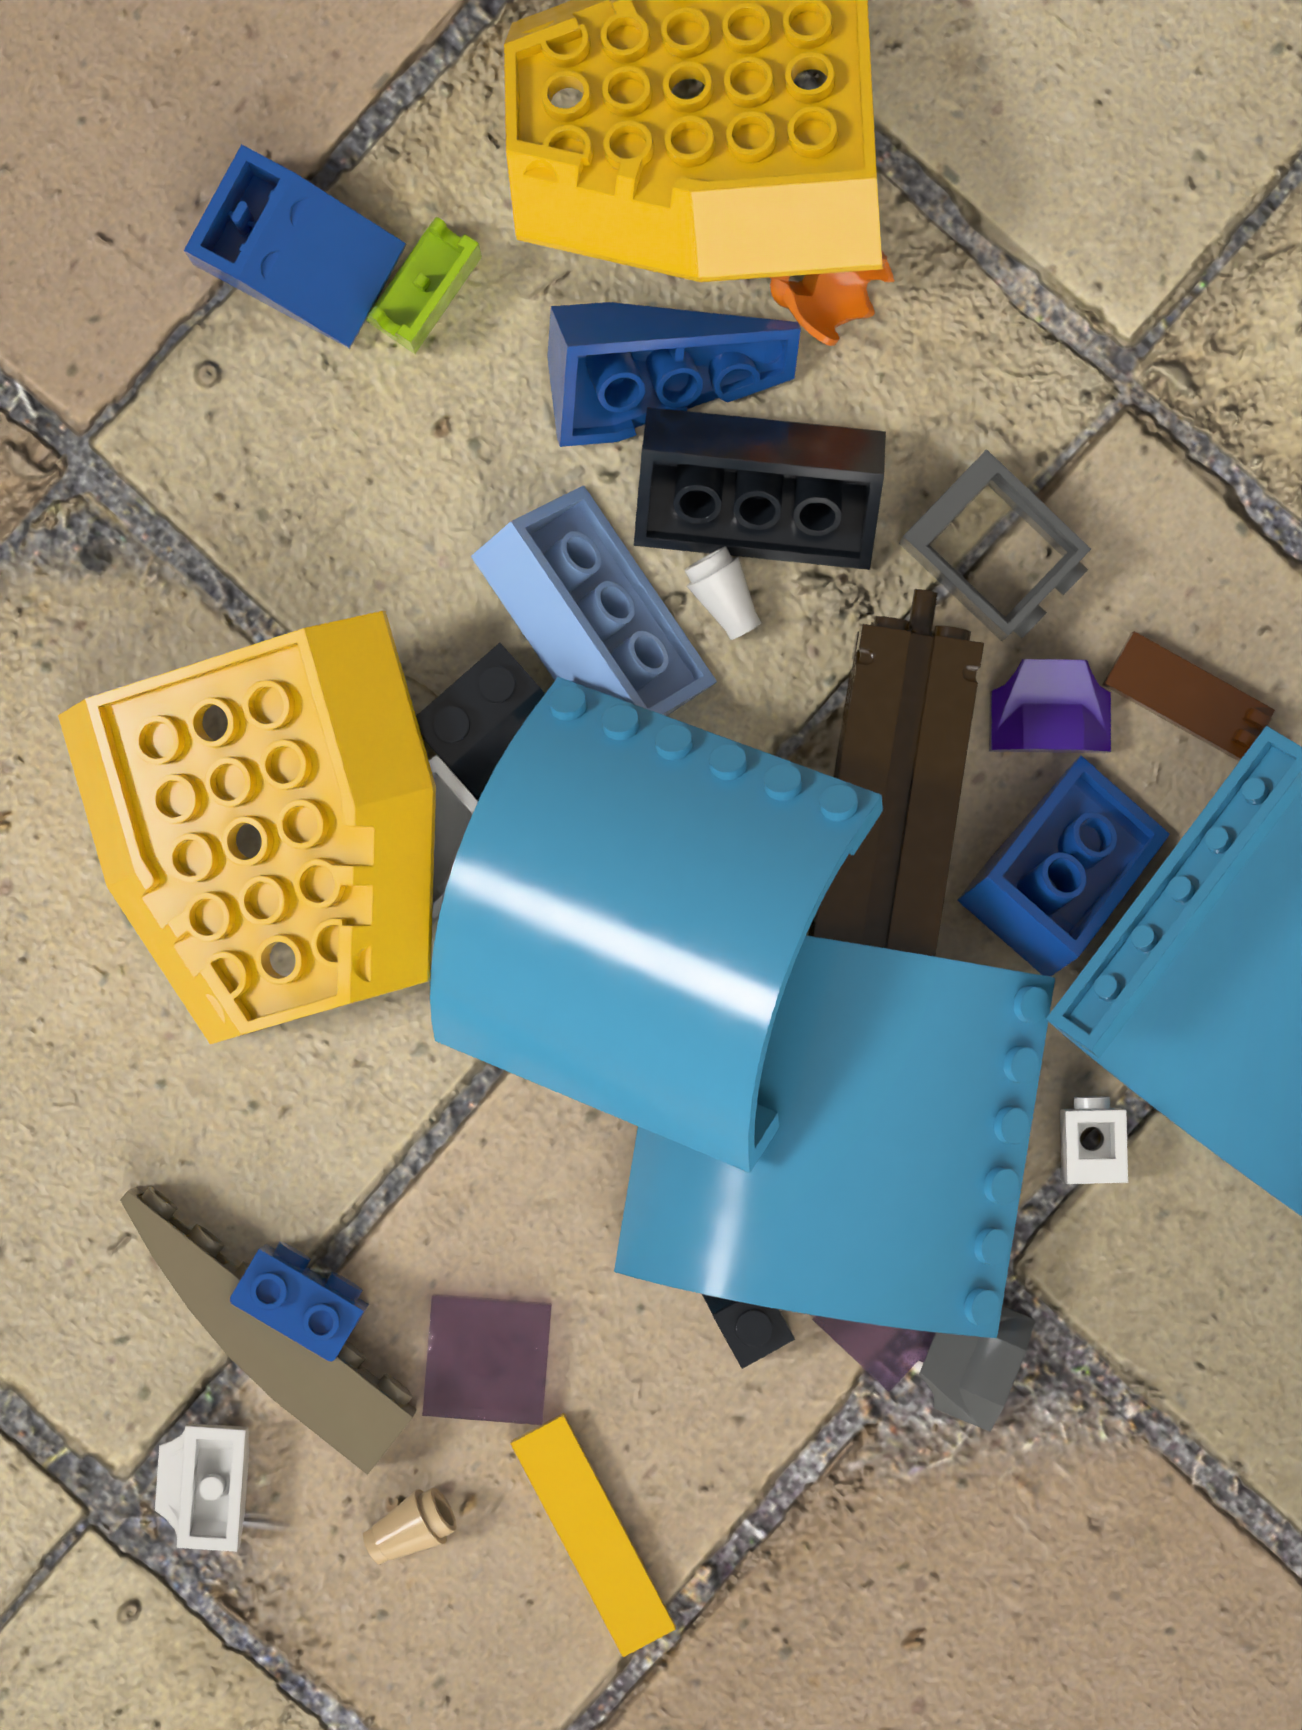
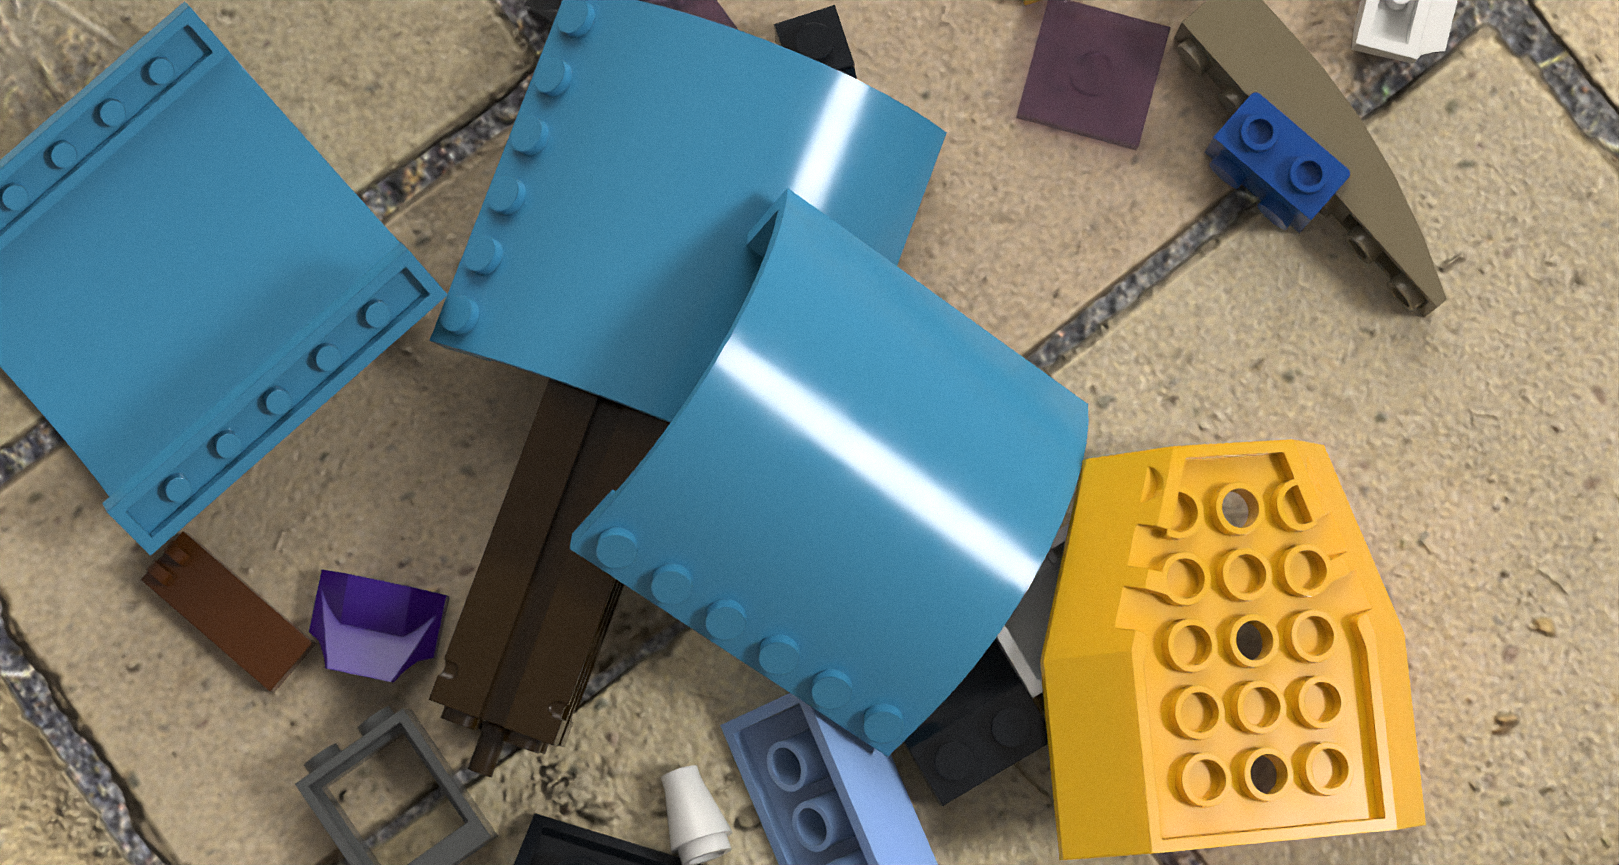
camera: 165 degrees left, 5 degrees down
(1064, 868) = (396, 455): blue slope -> none
(1109, 1159) = (420, 147): white brick -> none

